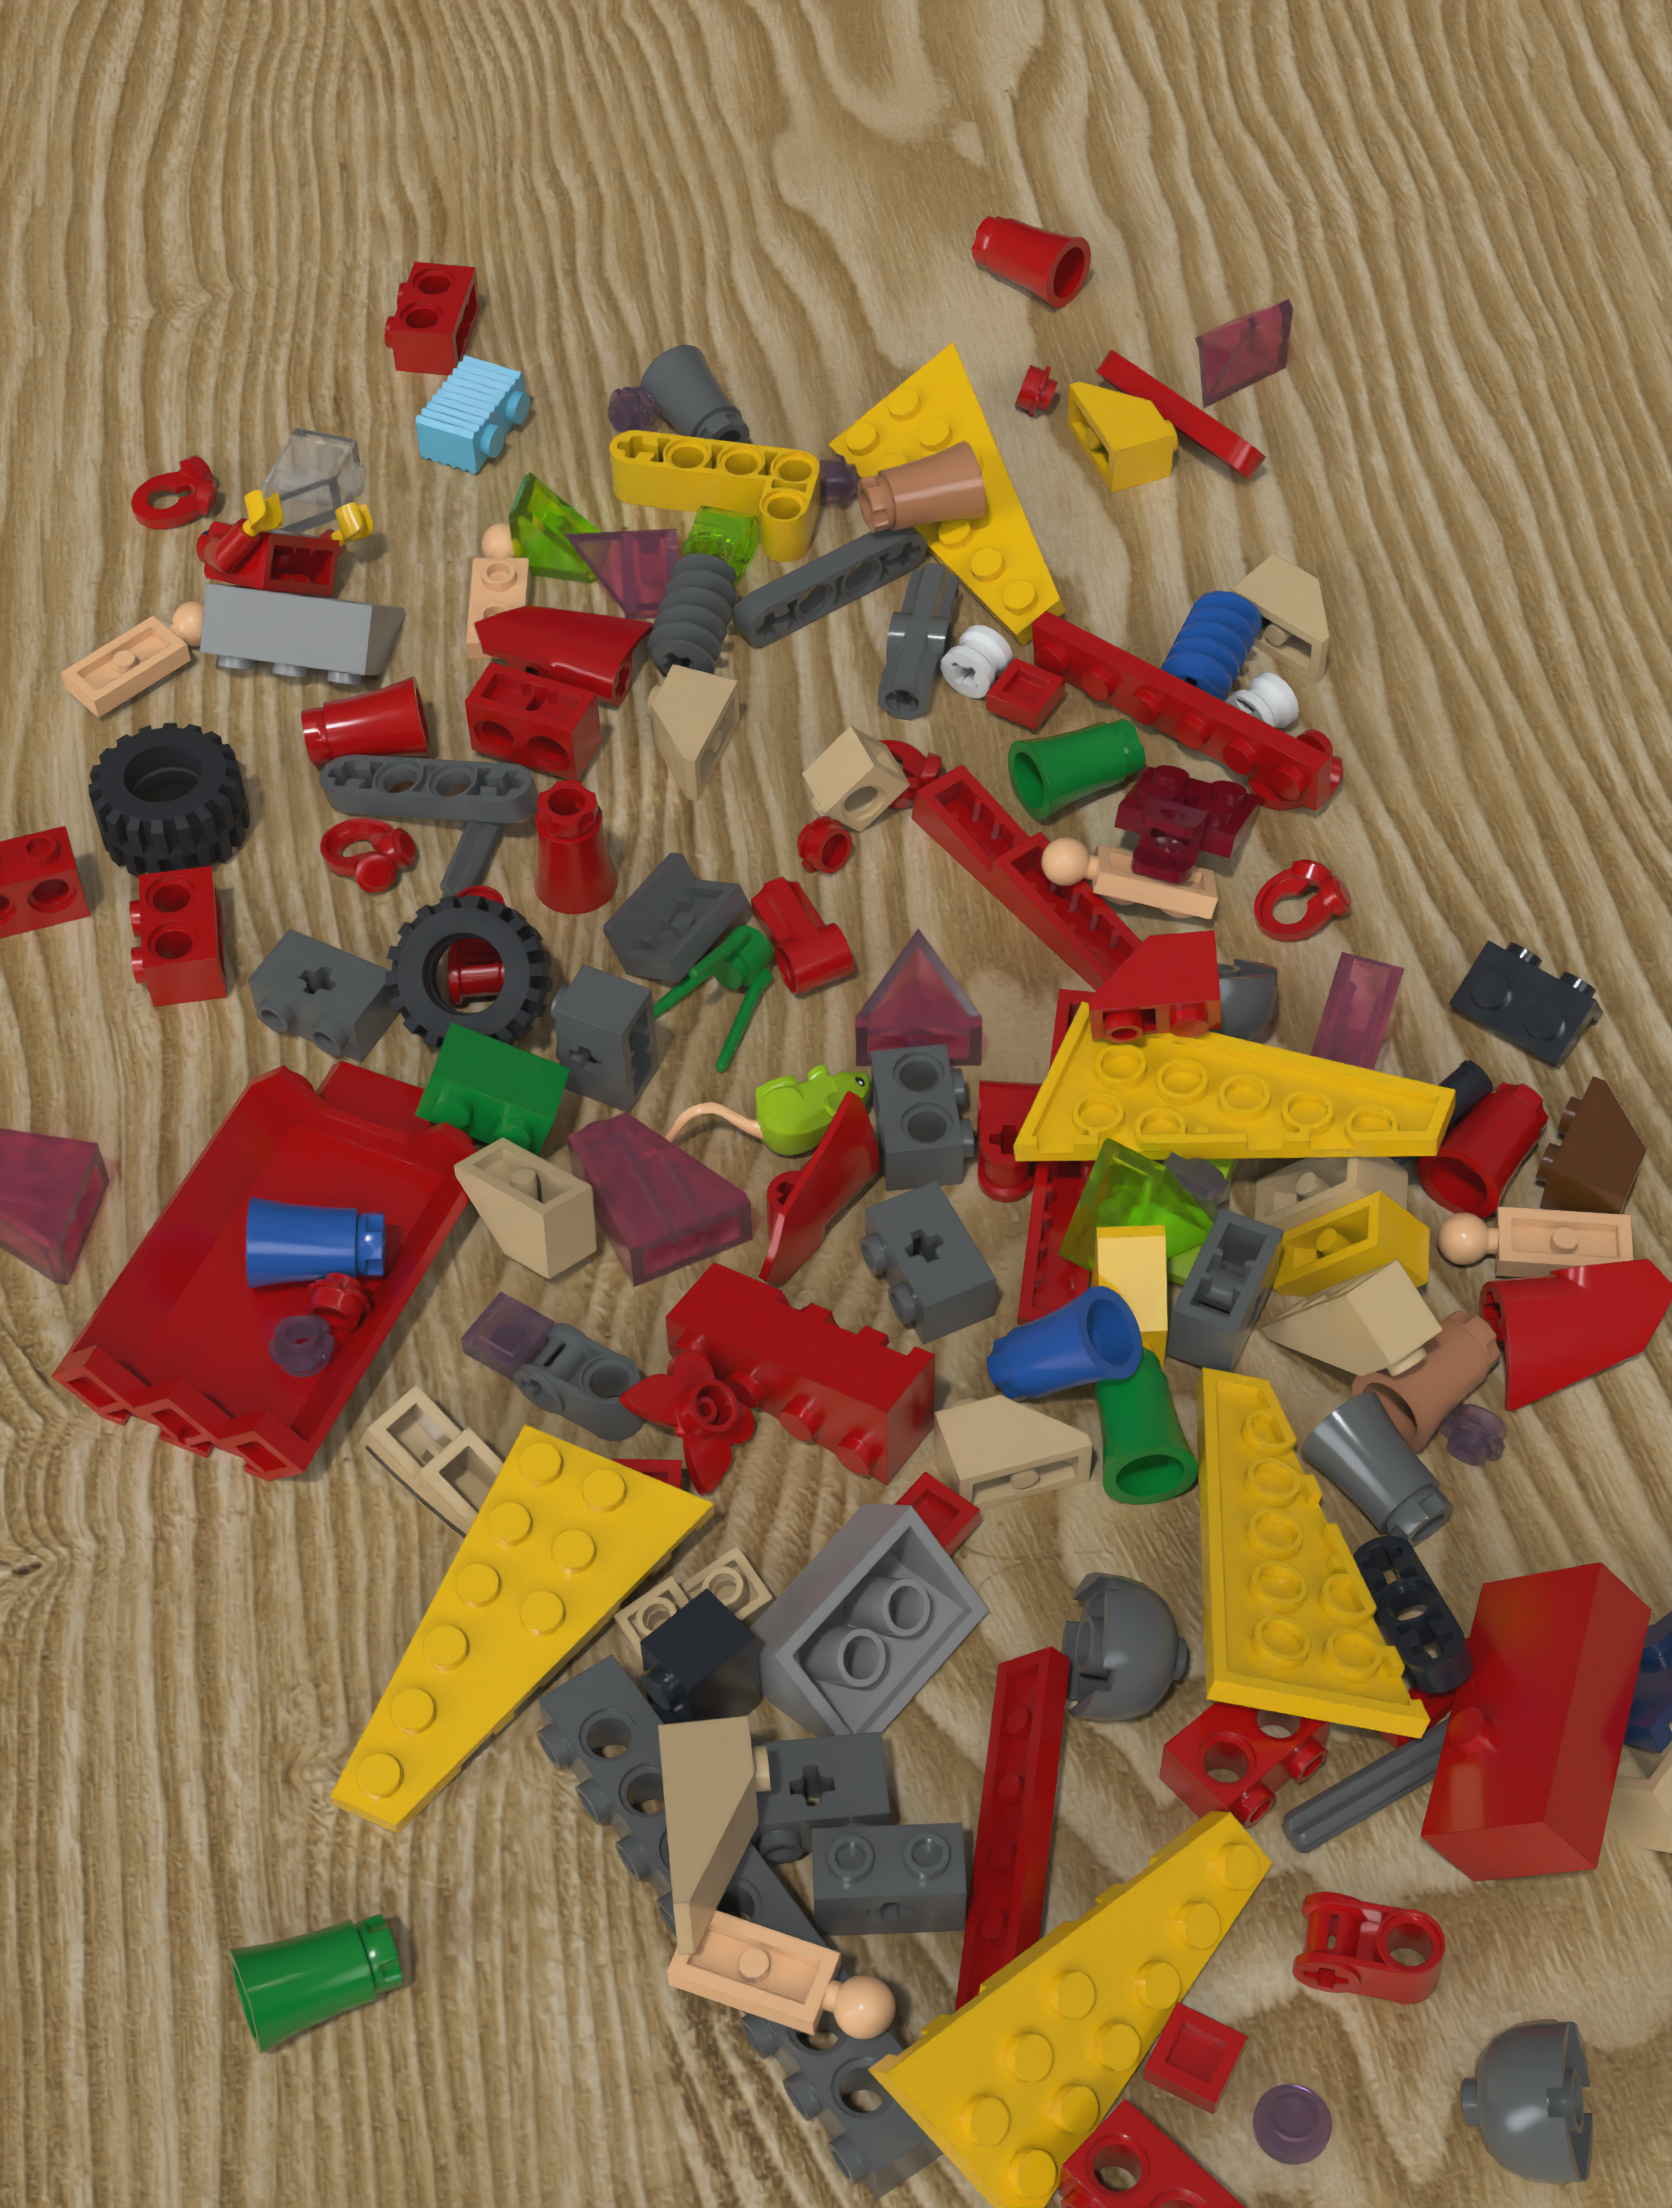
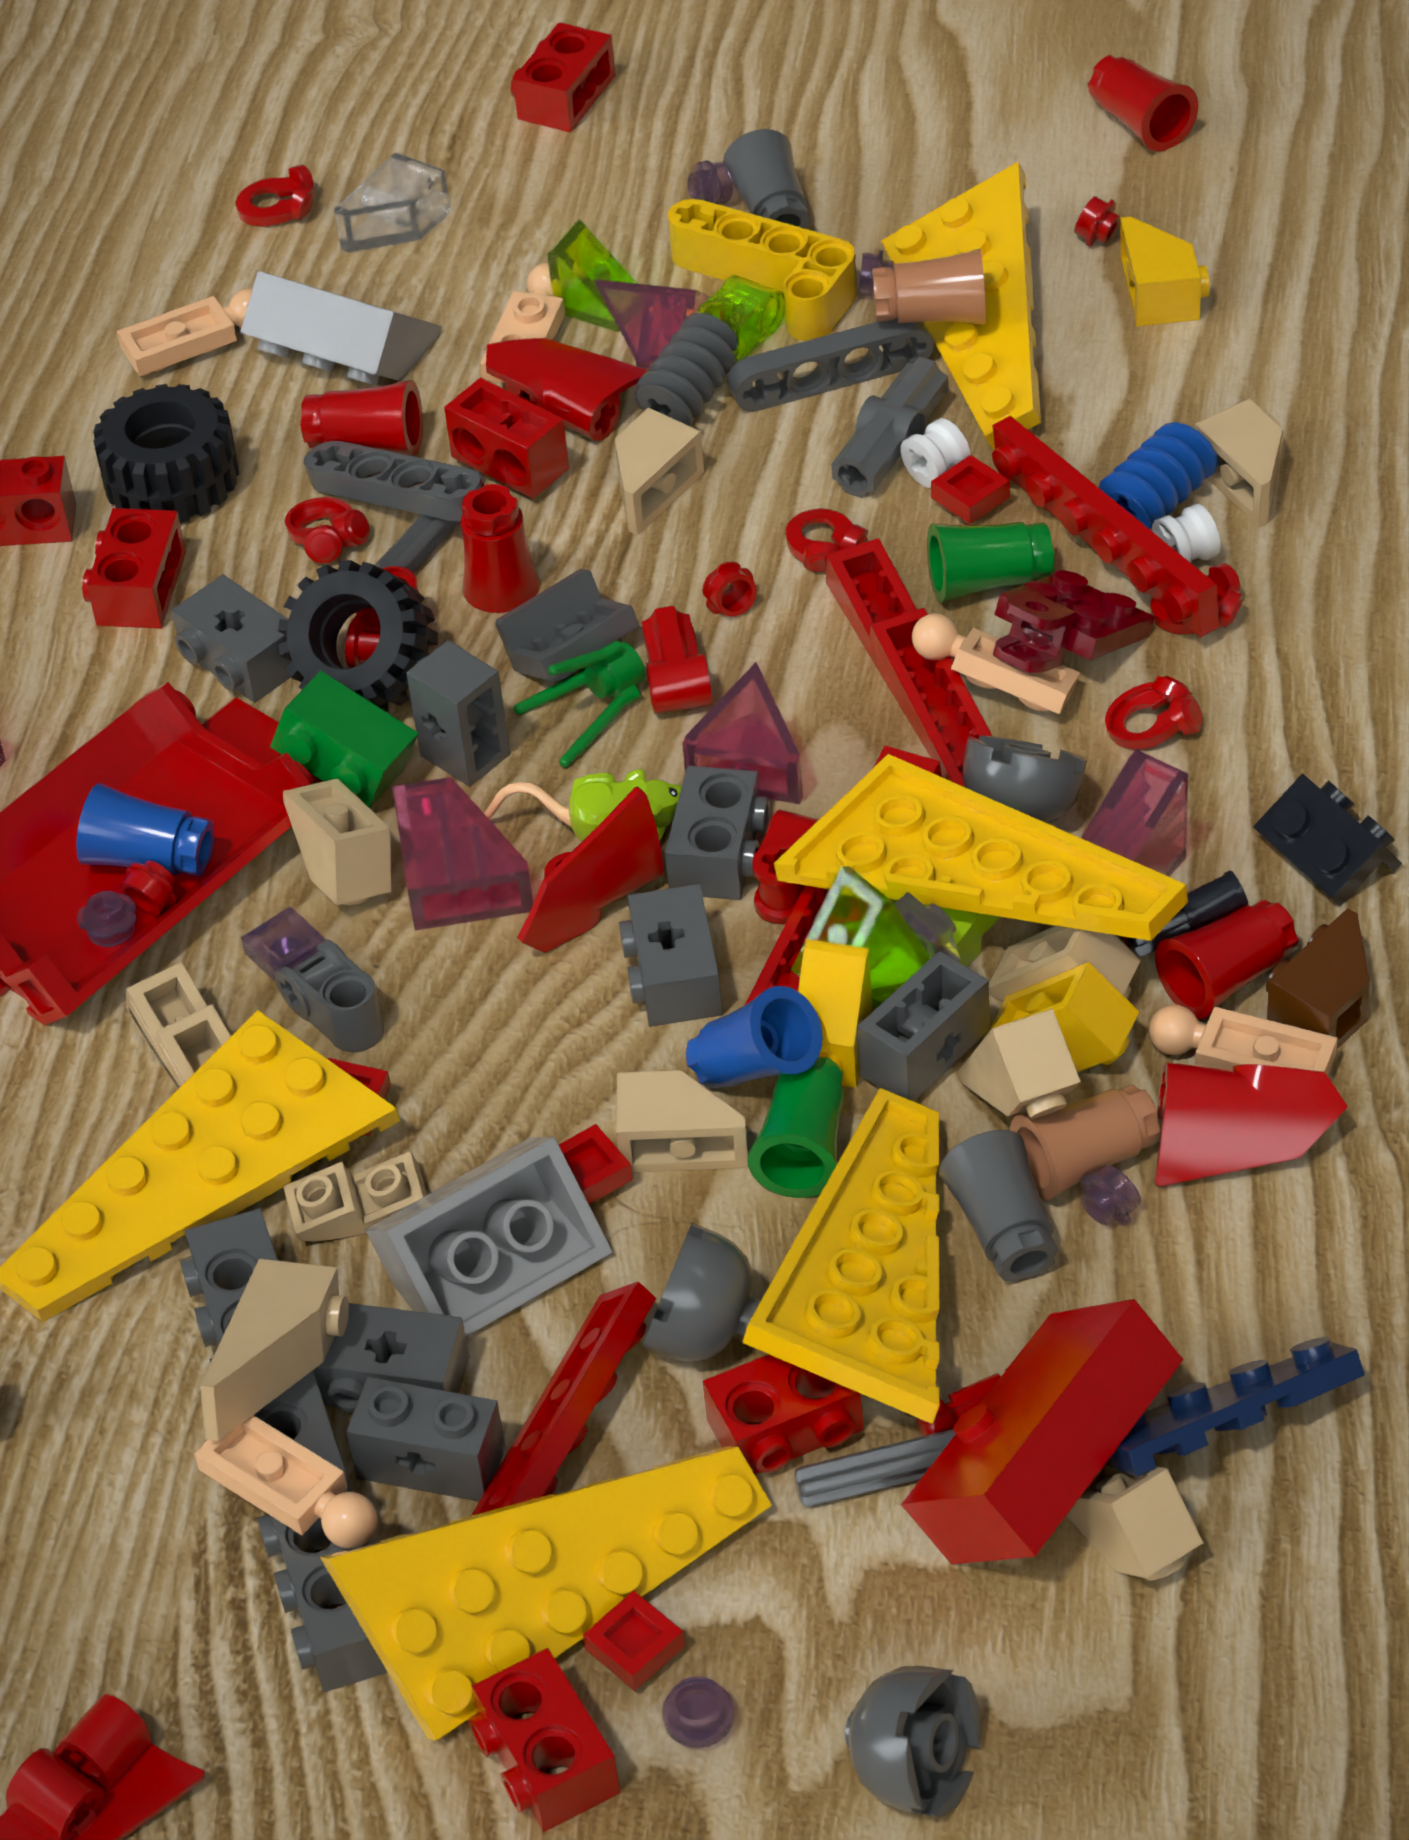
camera: 20 degrees right, 5 degrees down
(279, 560) = (337, 264): red torso -> none
(472, 414) = (563, 165): medium azure brick -> none
(699, 1411) = (417, 1035): red animal -> none
(701, 1664) = (330, 1225): black brick -> none
(808, 1371) = (525, 1021): red wedge -> none
(854, 779) = (775, 535): tan brick -> none
(1160, 989) = (949, 748): red slope -> none
(1183, 415) = (1225, 263): red beam -> none
(1244, 351) = (1314, 215): clear pink slope -> none
(1363, 1947) = (812, 1589): red piece -> none
(1410, 1635) = (975, 1325): black beam -> none

